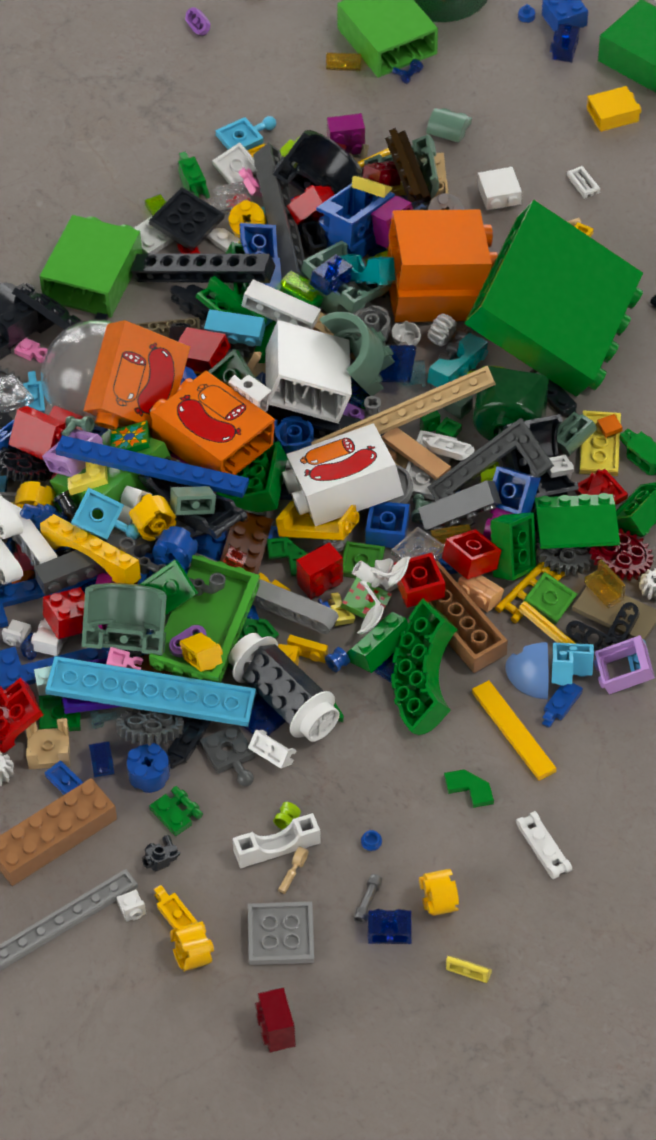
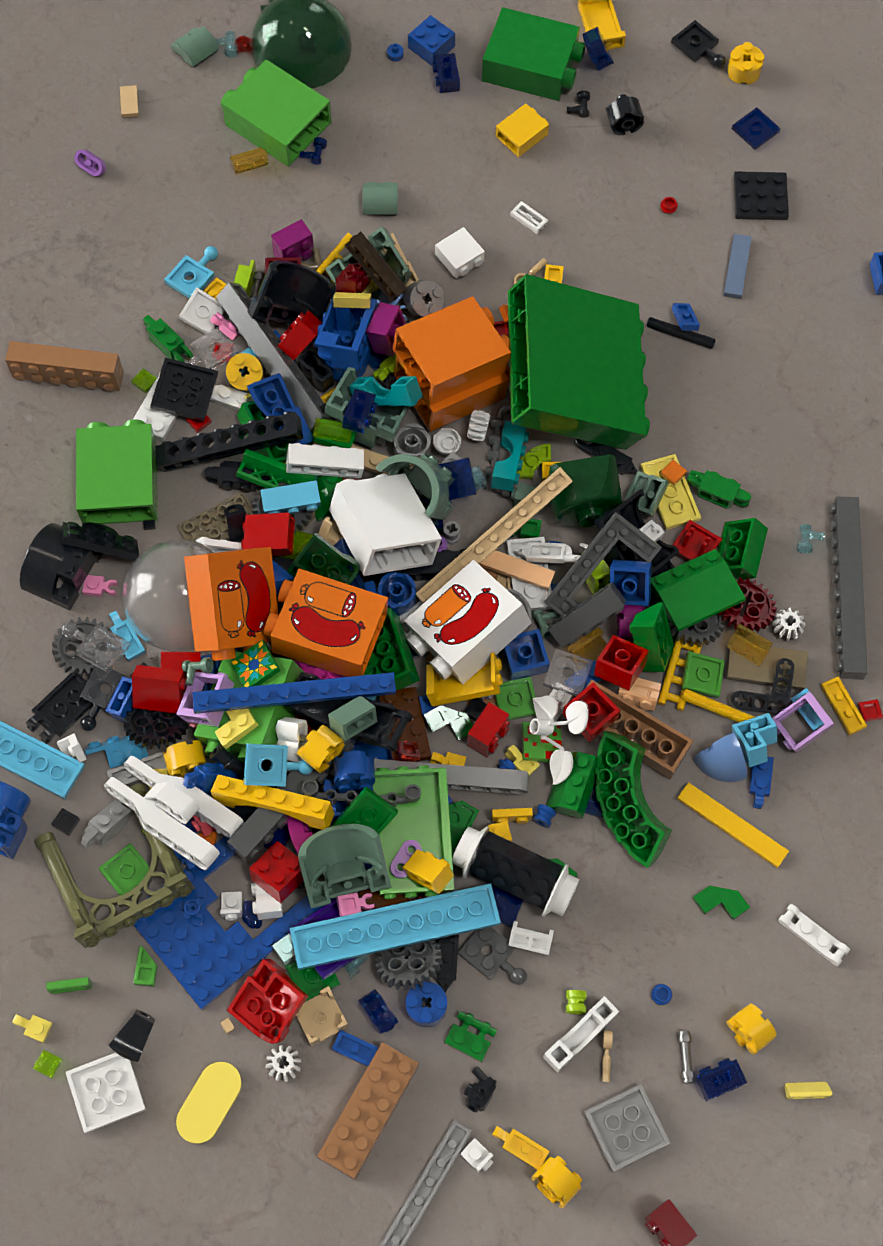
camera: 25 degrees left, 15 degrees up
(90, 168) = (64, 366): none -> medium nougat brick
(252, 391) = (350, 574): white torso -> none

